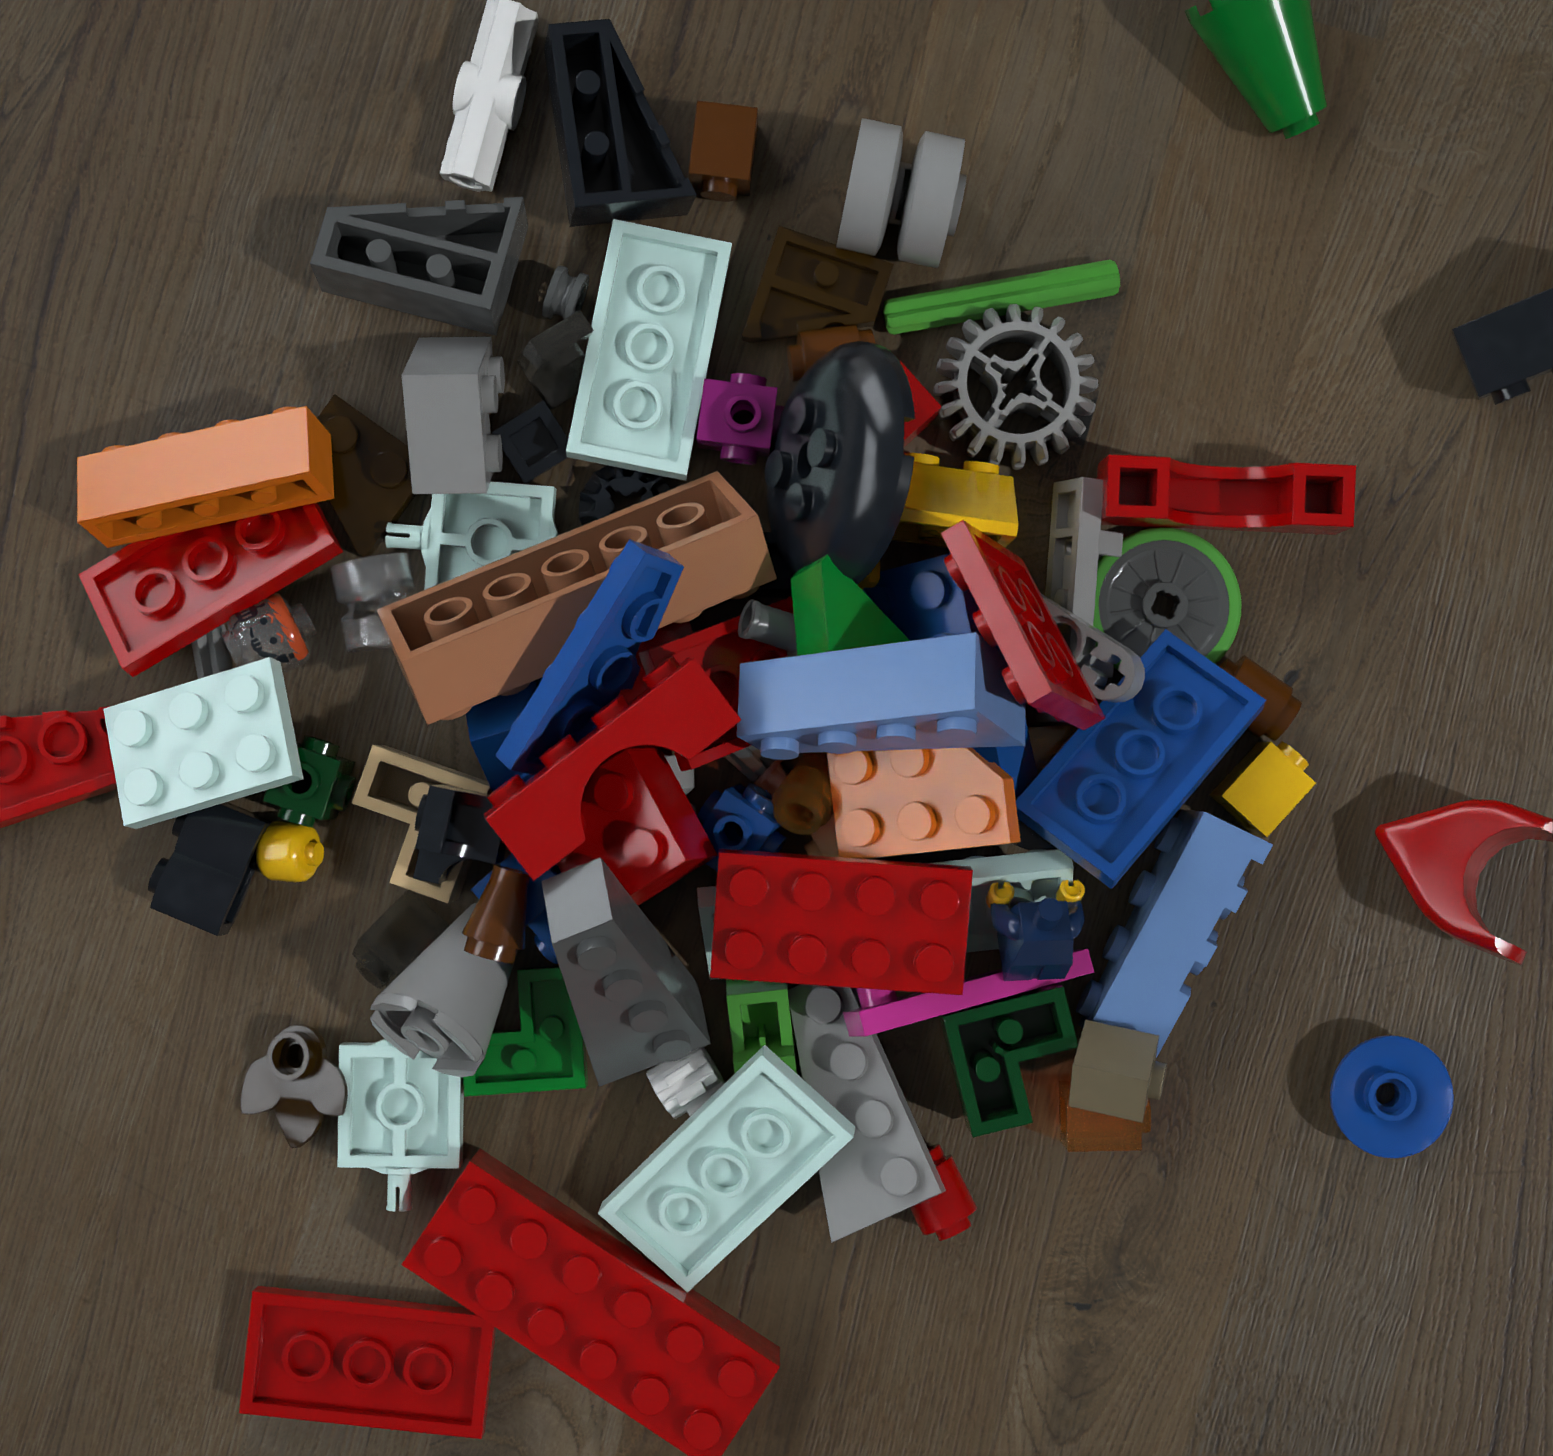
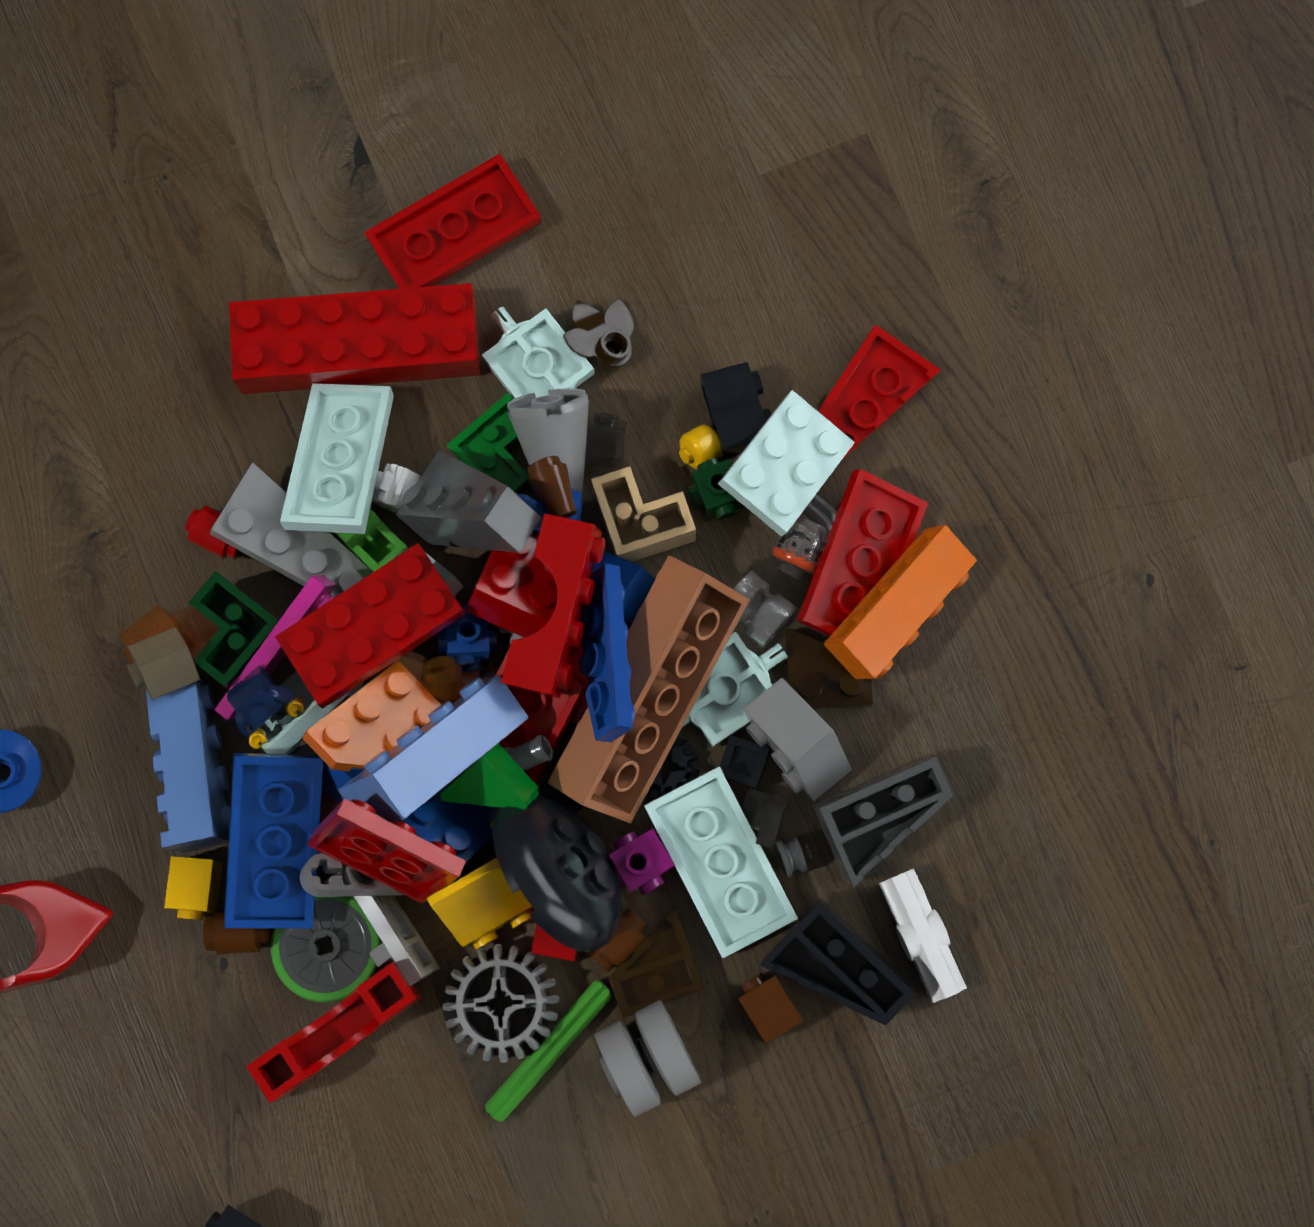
camera: 145 degrees right, 10 degrees down
(453, 830) = (614, 515): black brick -> none

